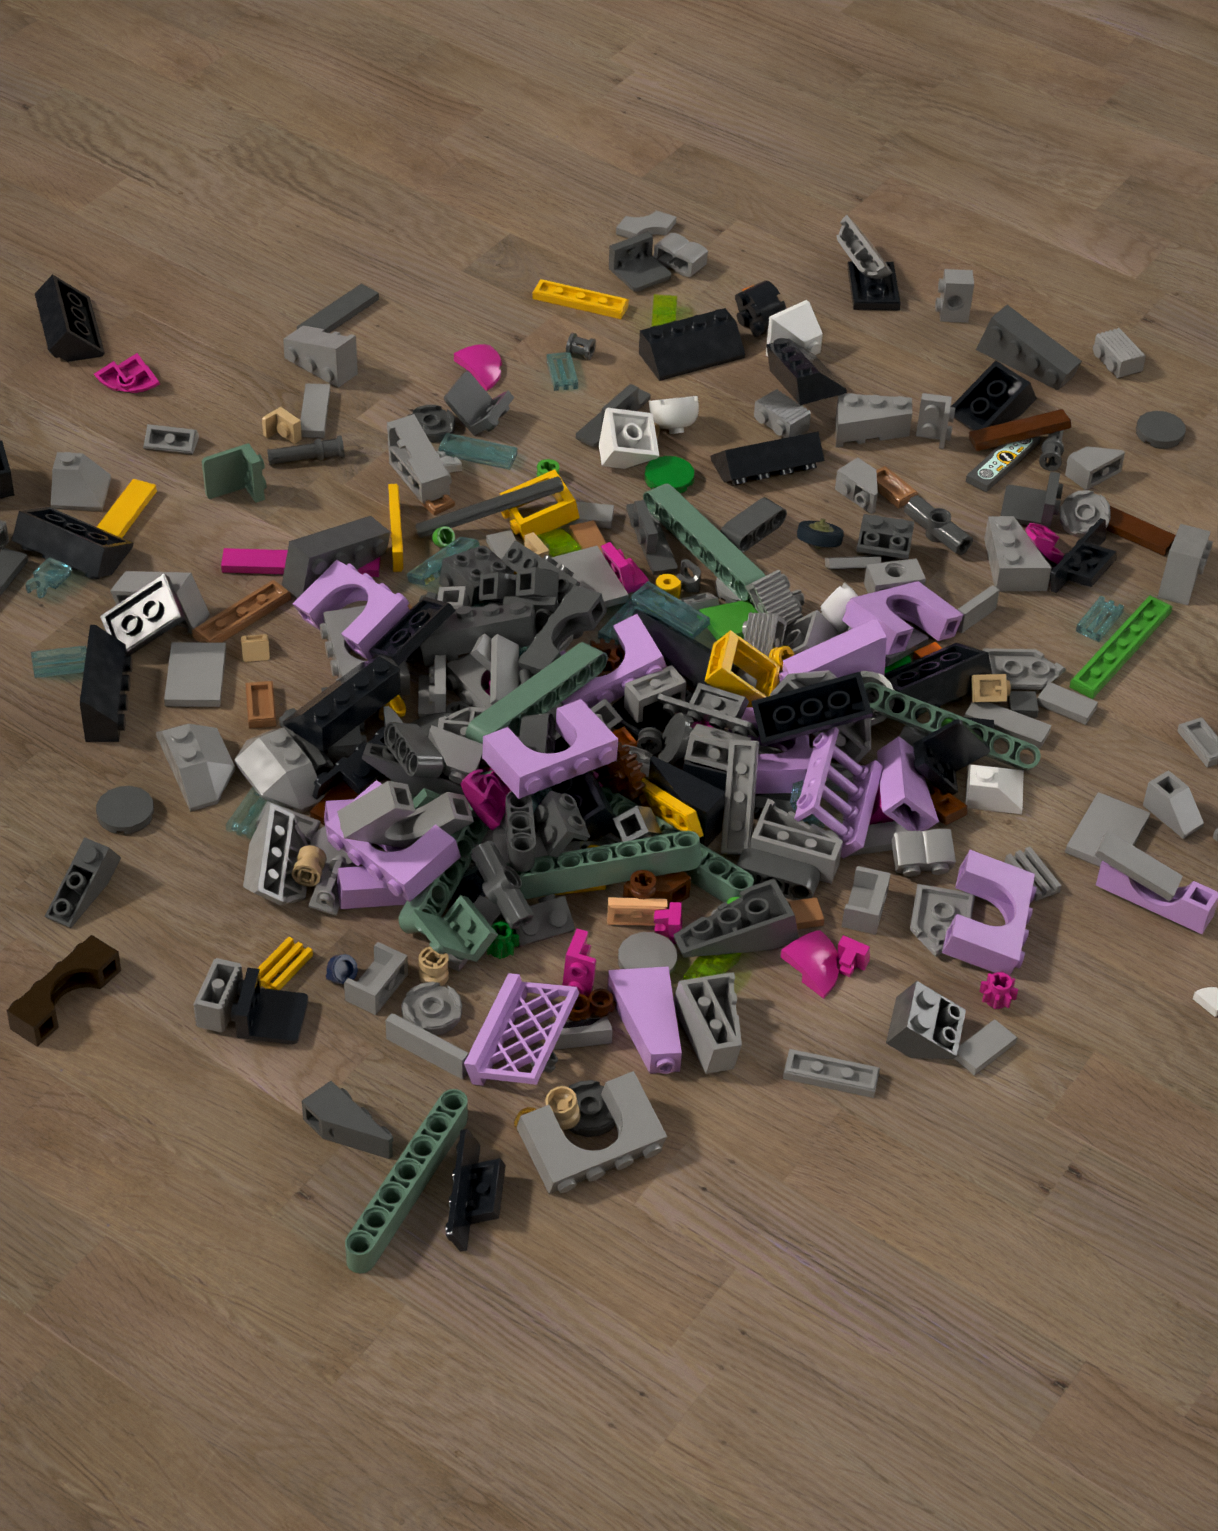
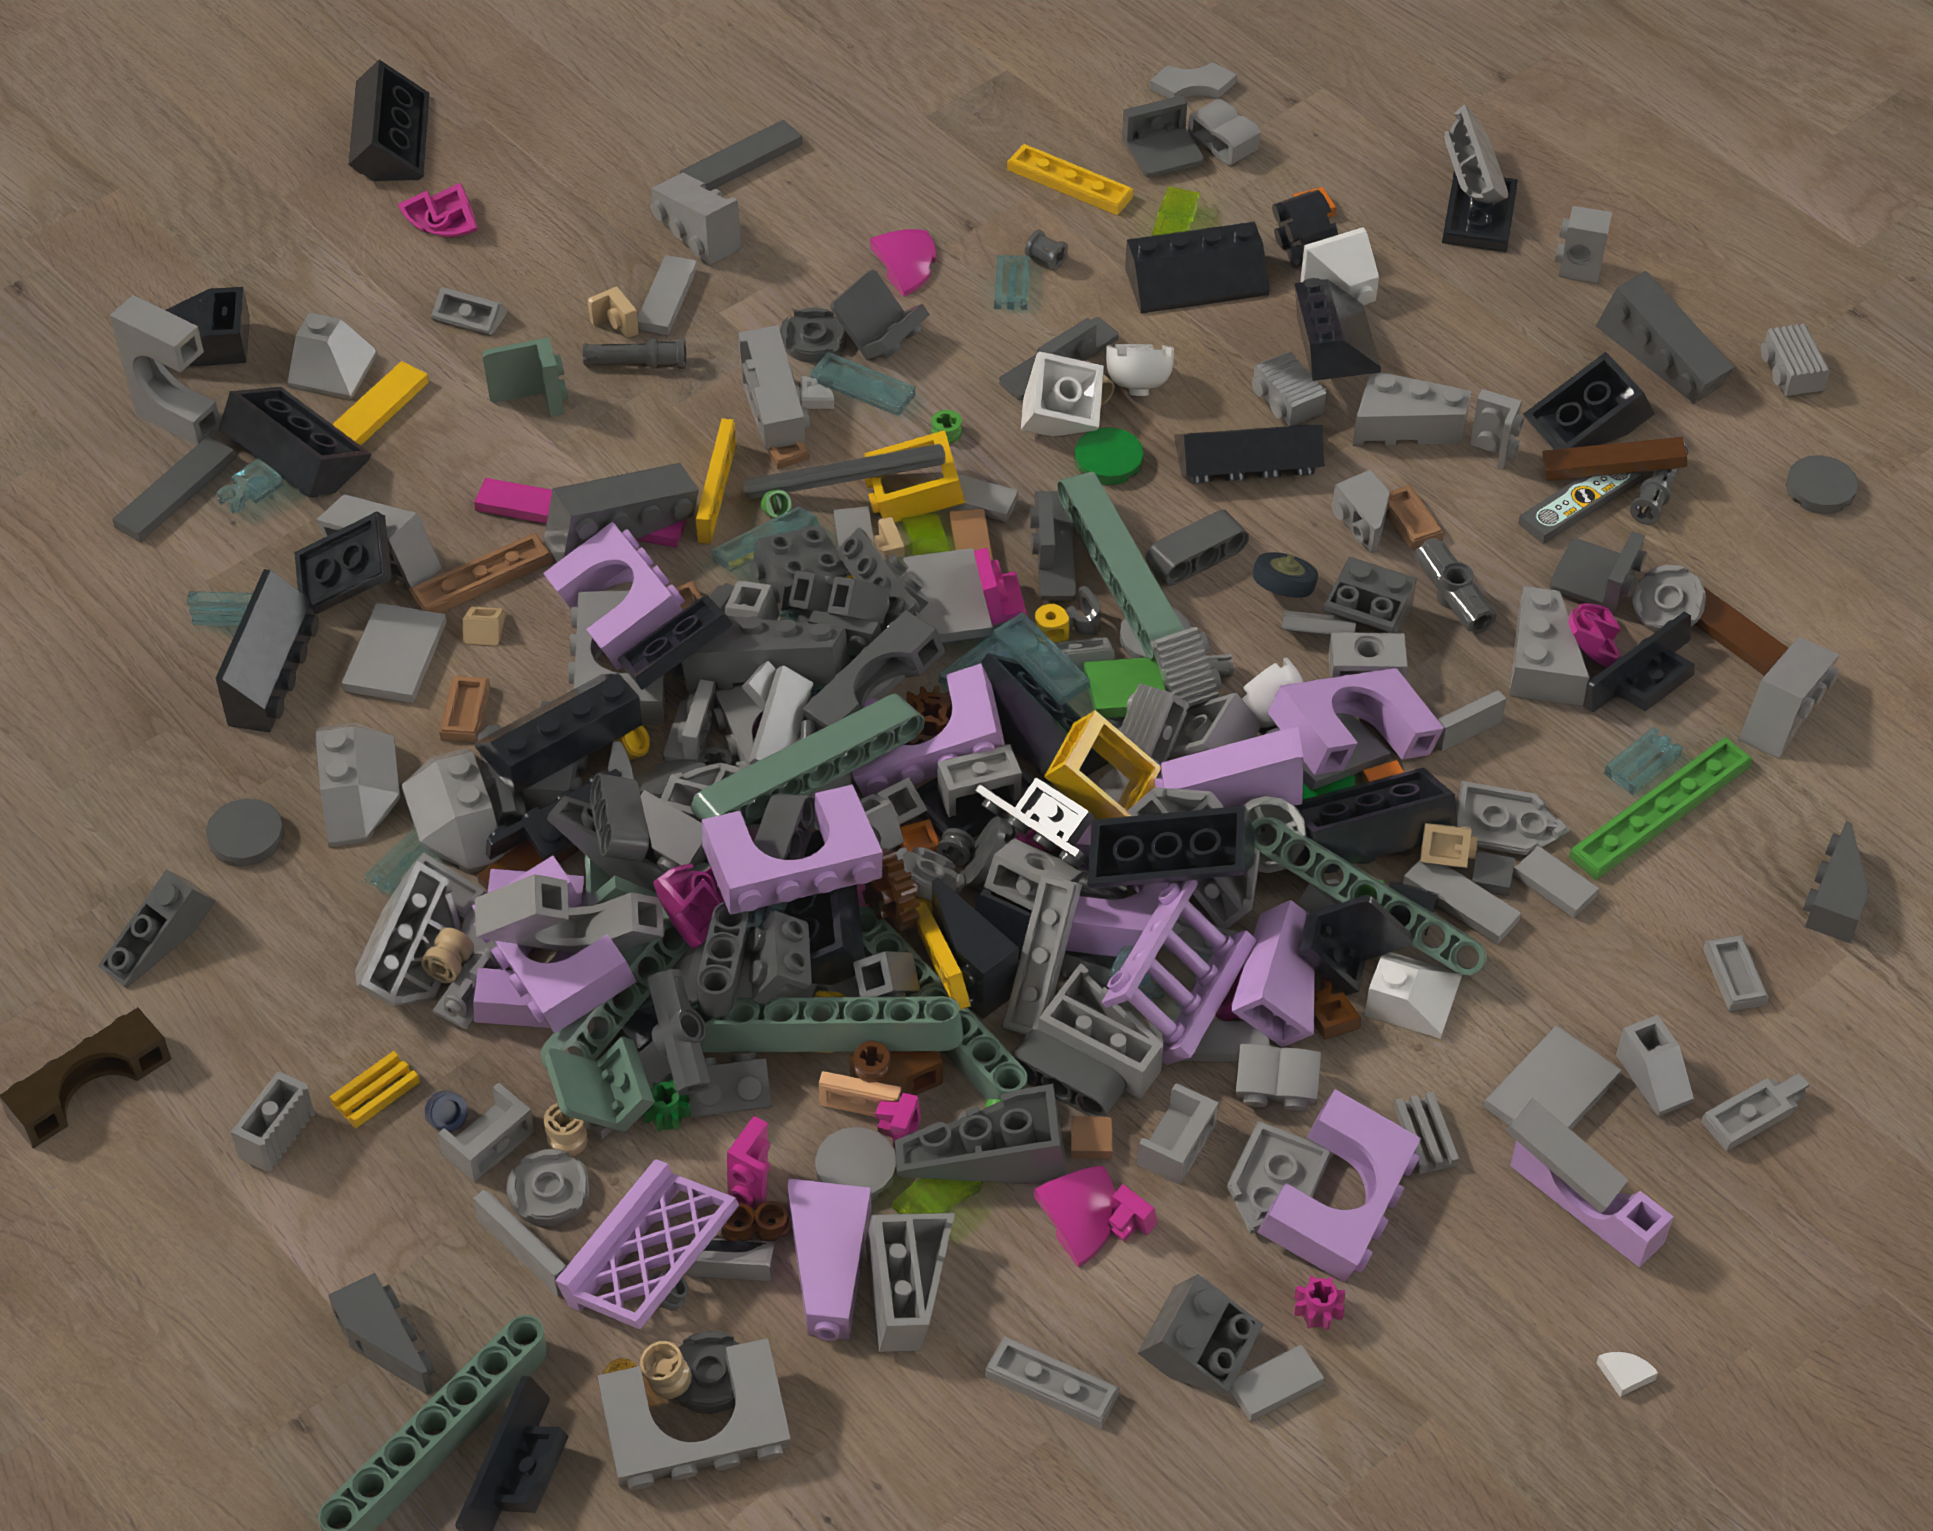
camera: 15 degrees right, 5 degrees up
(267, 1013) = (331, 1154): black bracket -> none
(779, 654) = (1165, 746): yellow bush -> none
(1093, 465) = (1705, 527): light grey slope -> none

